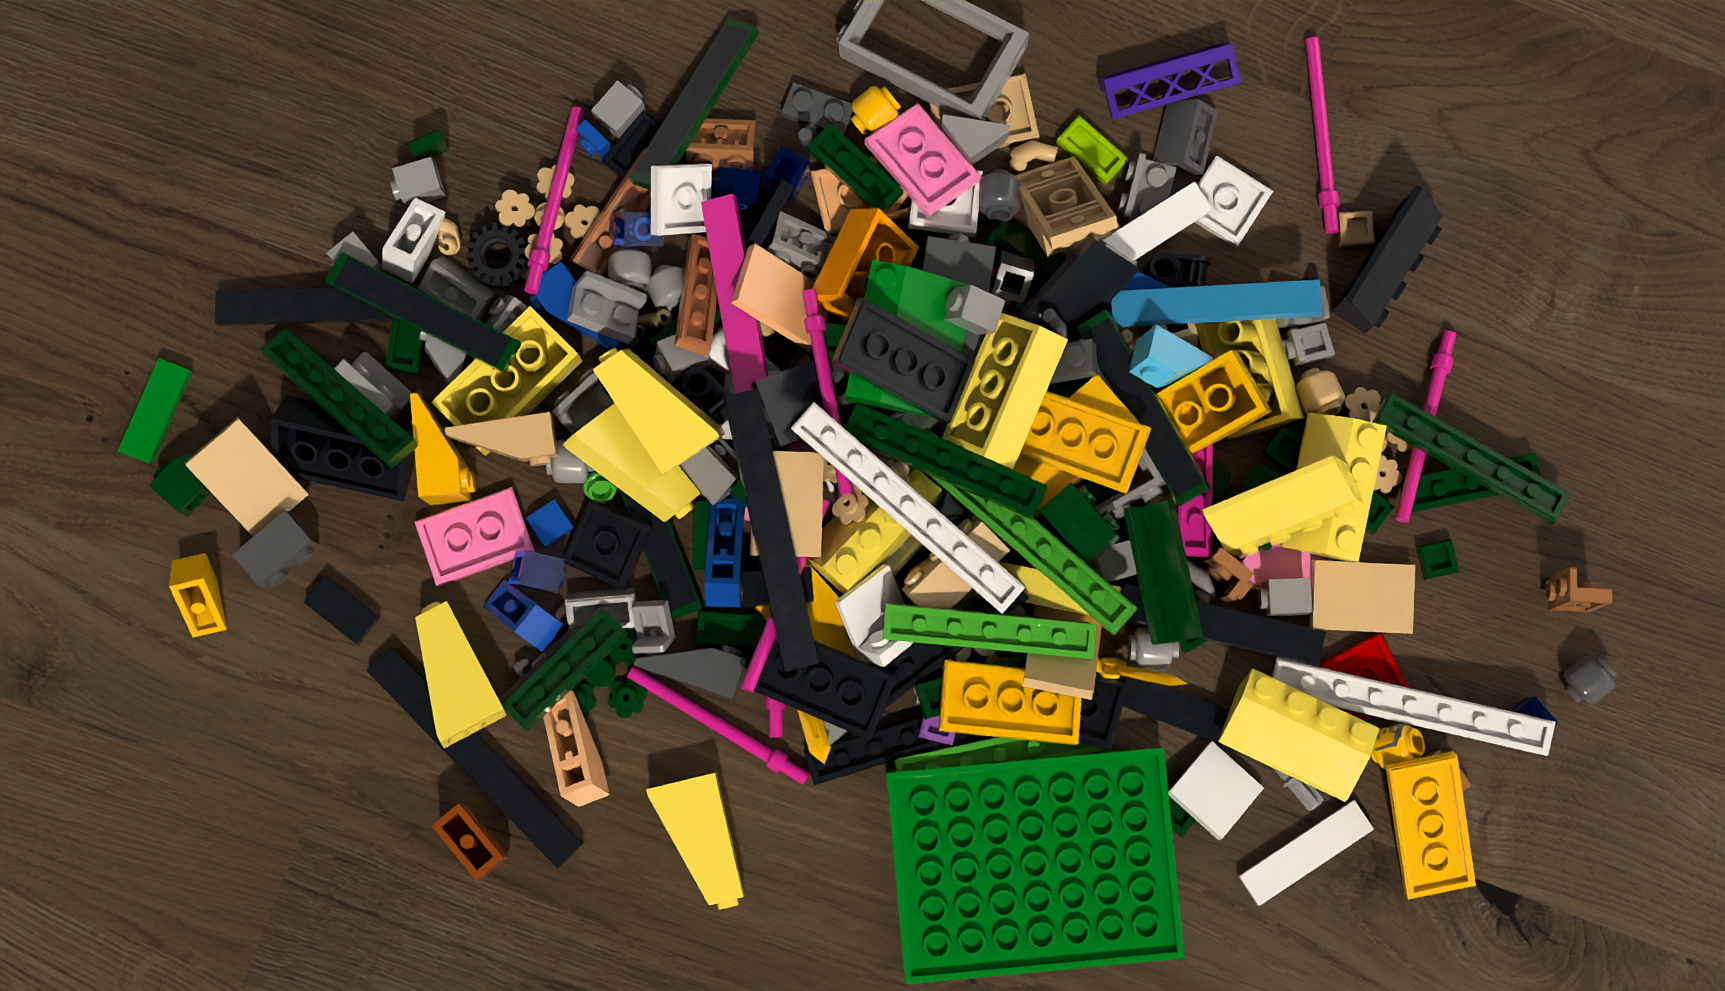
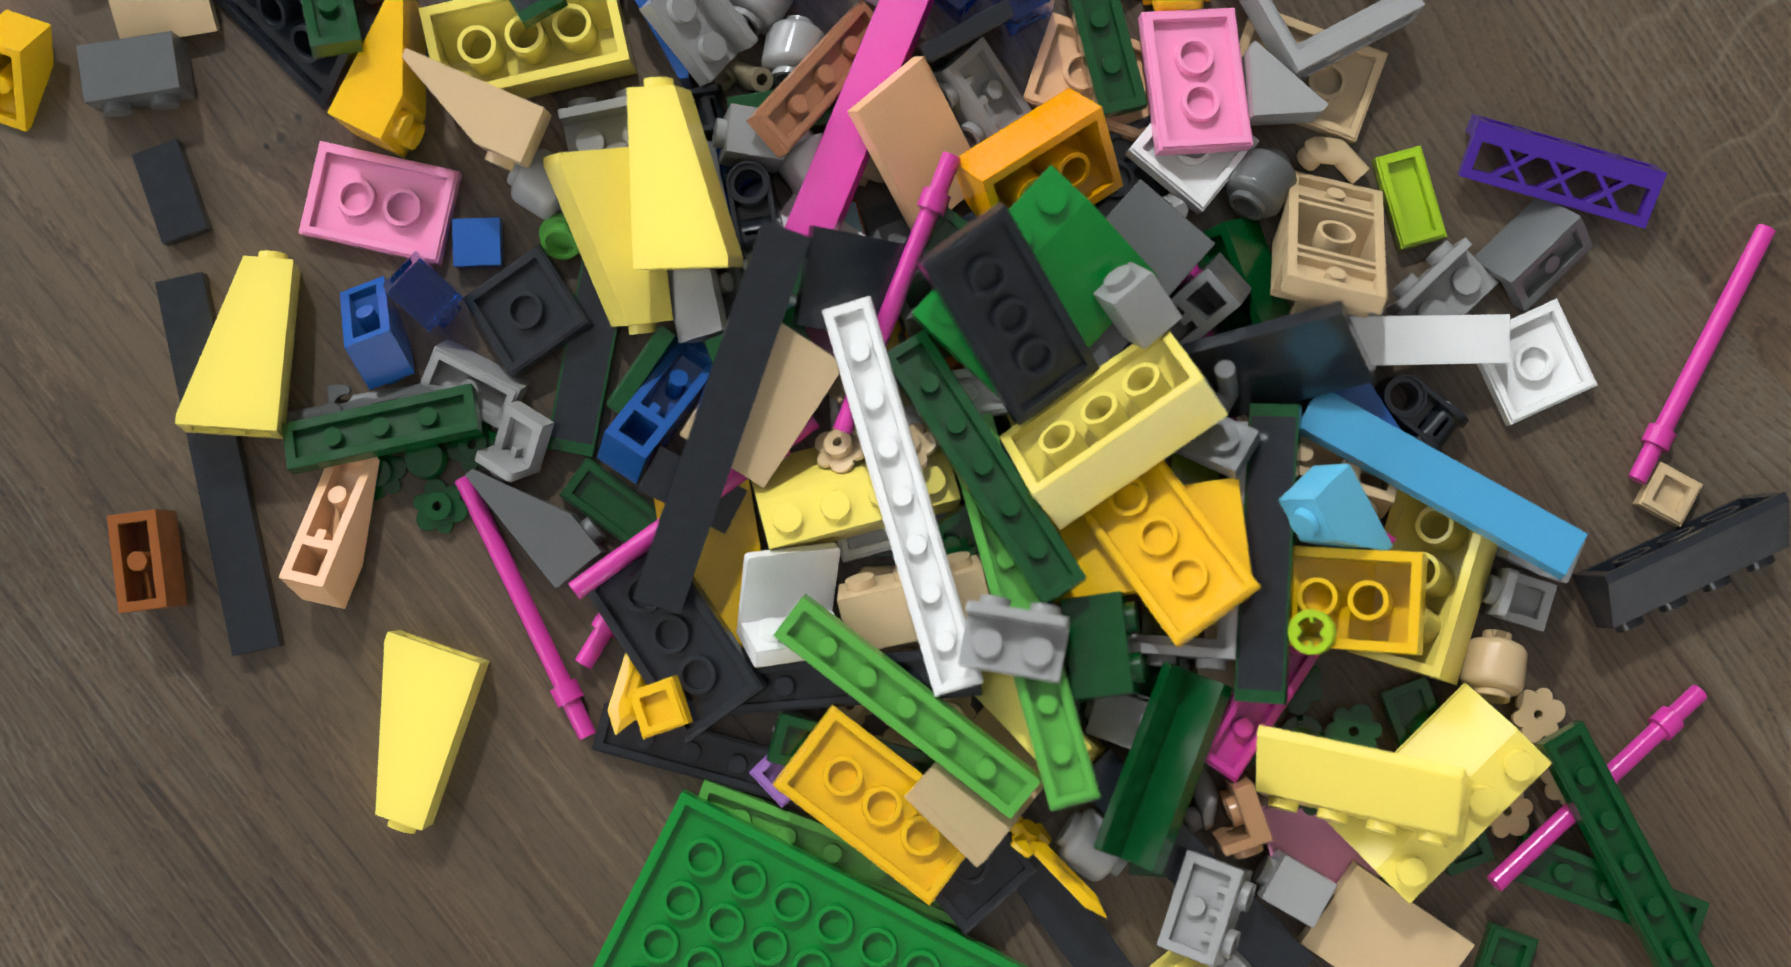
camera: 40 degrees right, 5 degrees up
(841, 727) = (660, 707): none -> yellow tile
(1027, 548) = (1014, 639): none -> light grey bracket
(1189, 442) = (1296, 631): none -> lime bush
(1243, 640) = (1206, 909): none -> light grey bracket

